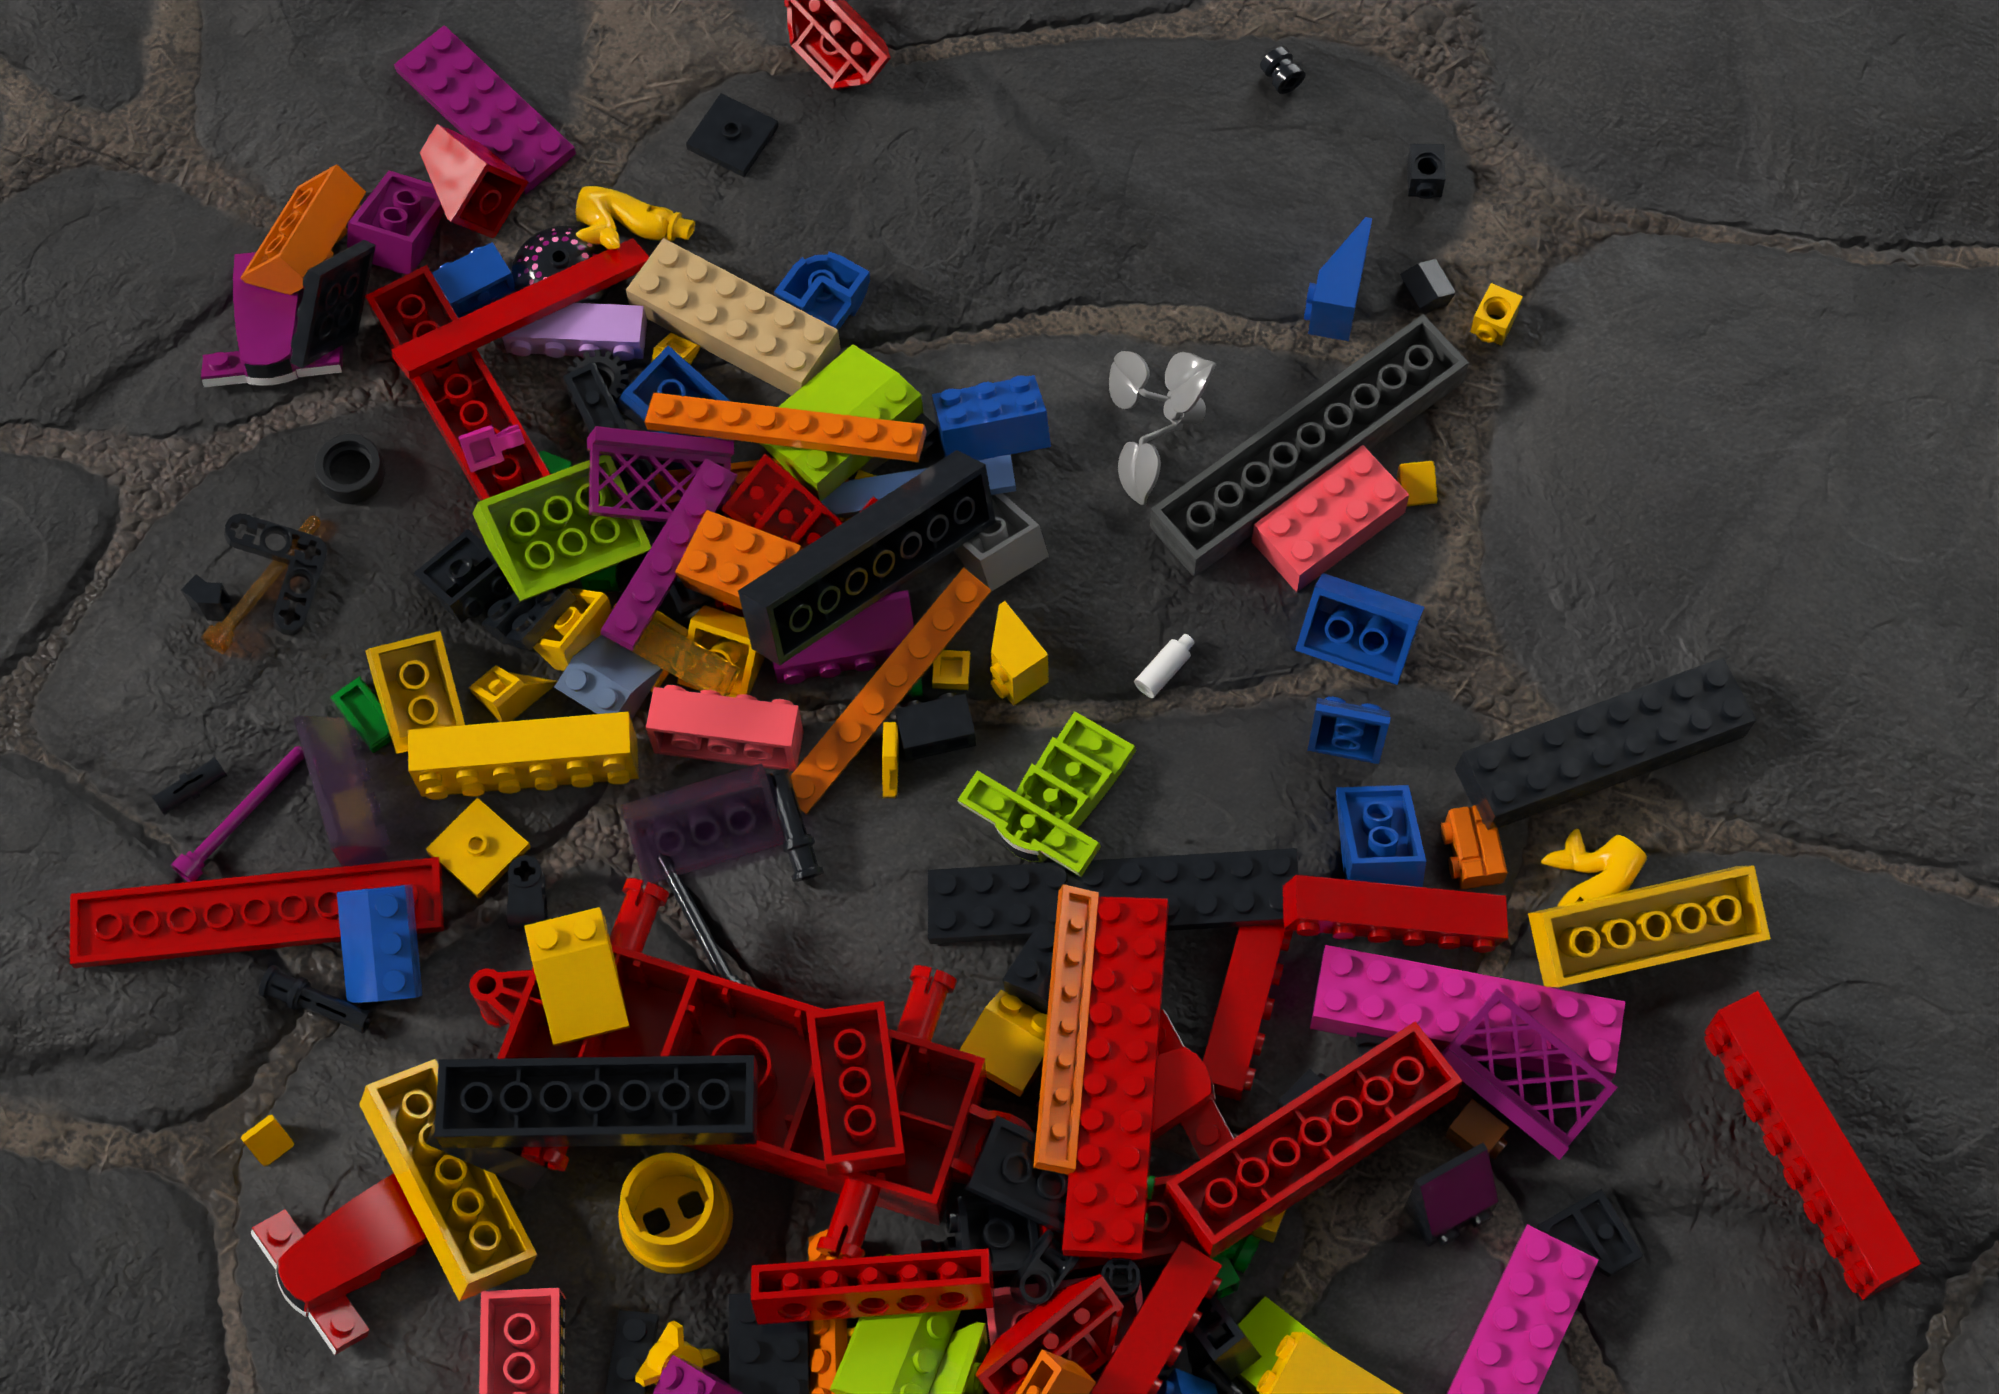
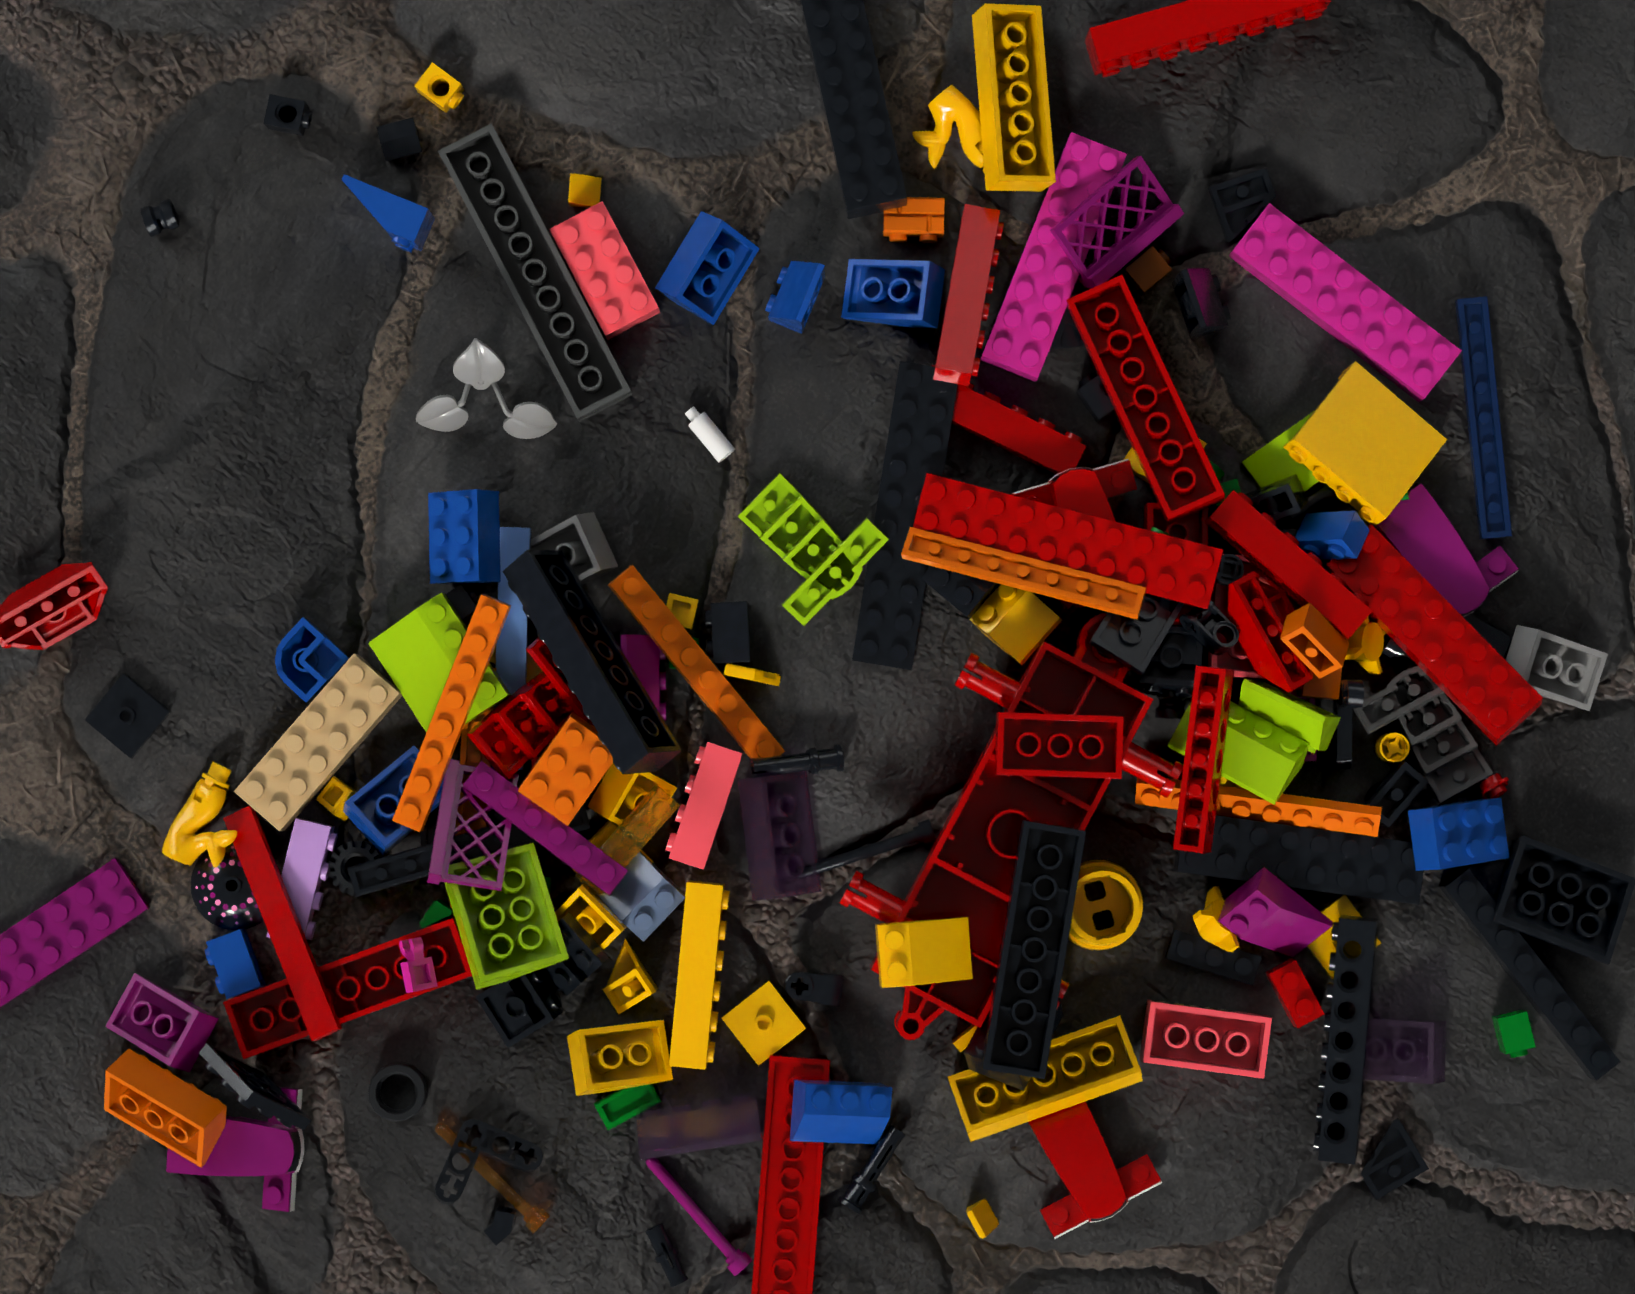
camera: 80 degrees left, 20 degrees up
(471, 181) = (140, 953): red slope -> none
(1017, 658) = (685, 557): yellow slope -> none

